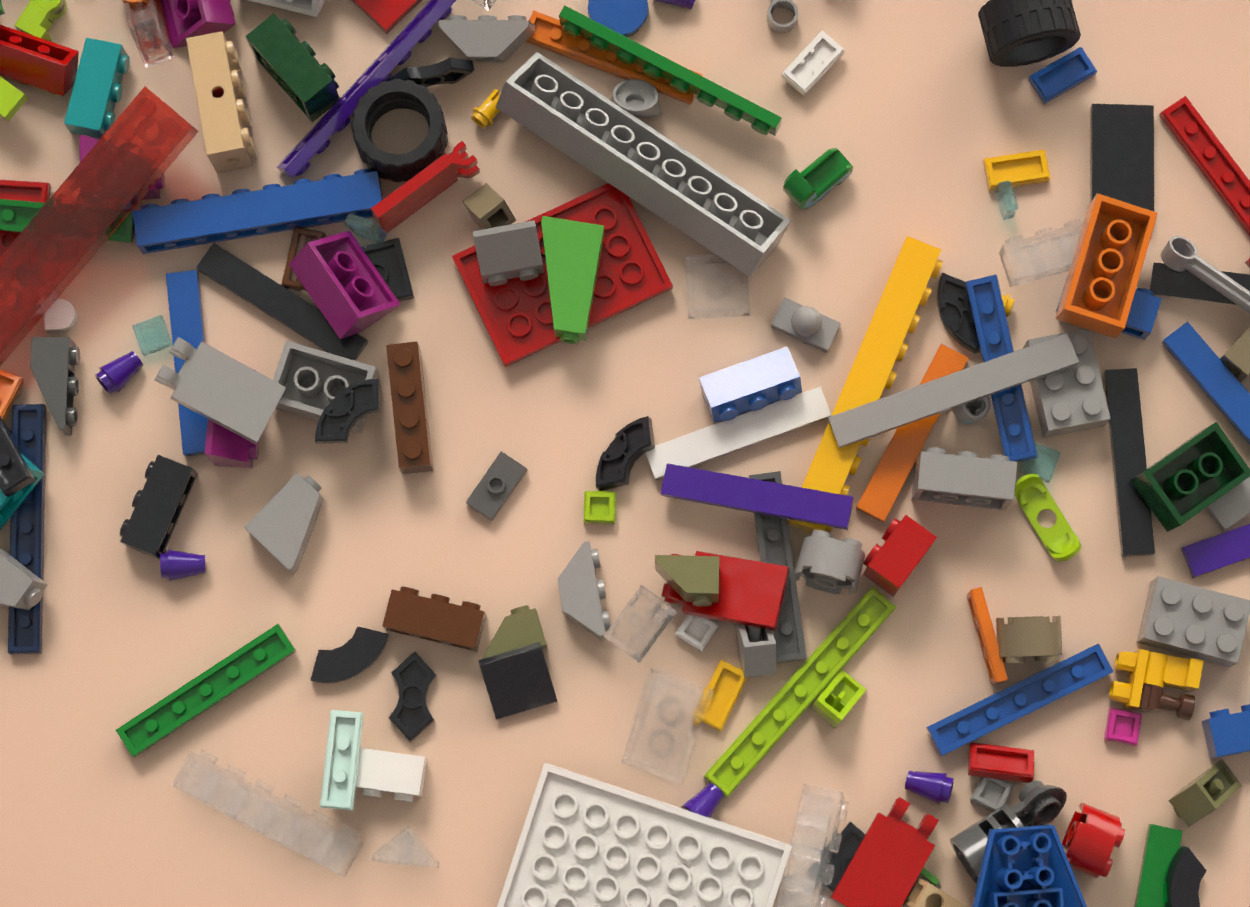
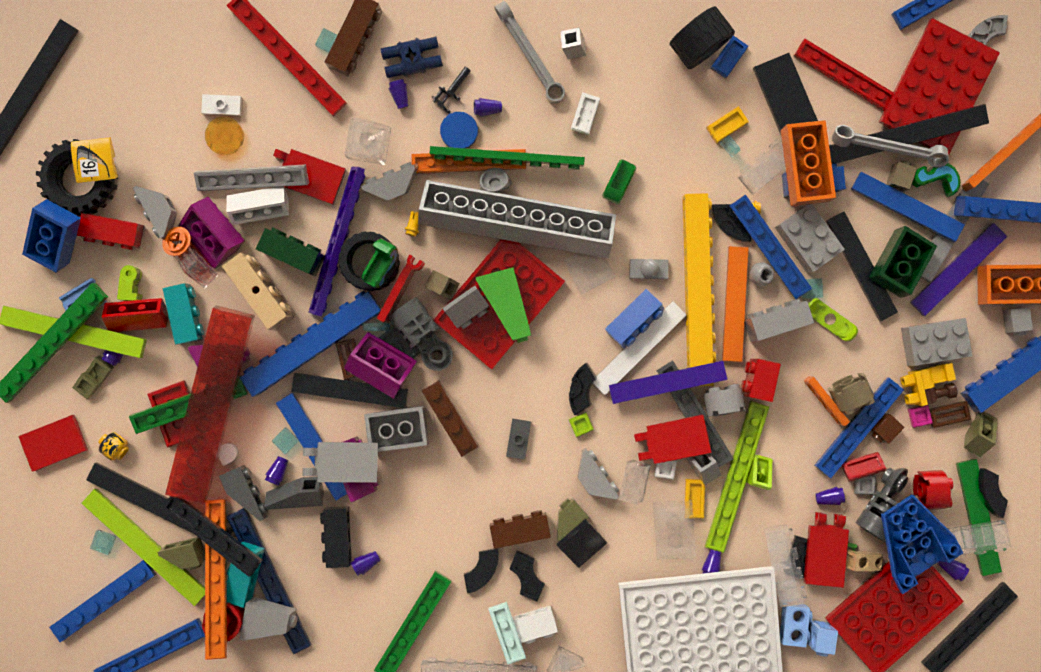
camera: 30 degrees left, 10 degrees up
(136, 417) = (296, 494): none -> dark grey slope
(288, 521) = (412, 512): light grey slope -> none
(346, 409) = (417, 440): black tile -> none
(415, 131) = (380, 263): none -> green animal
(425, 262) = (420, 333): none -> dark grey cylinder
(444, 72) = (379, 214): black tile -> none
(691, 577) = (655, 445): olive slope -> none
(953, 390) = (752, 273): light grey tile -> none
(1060, 719) = (886, 429): none -> reddish brown brick
(1140, 750) = (938, 424): none -> reddish brown tile

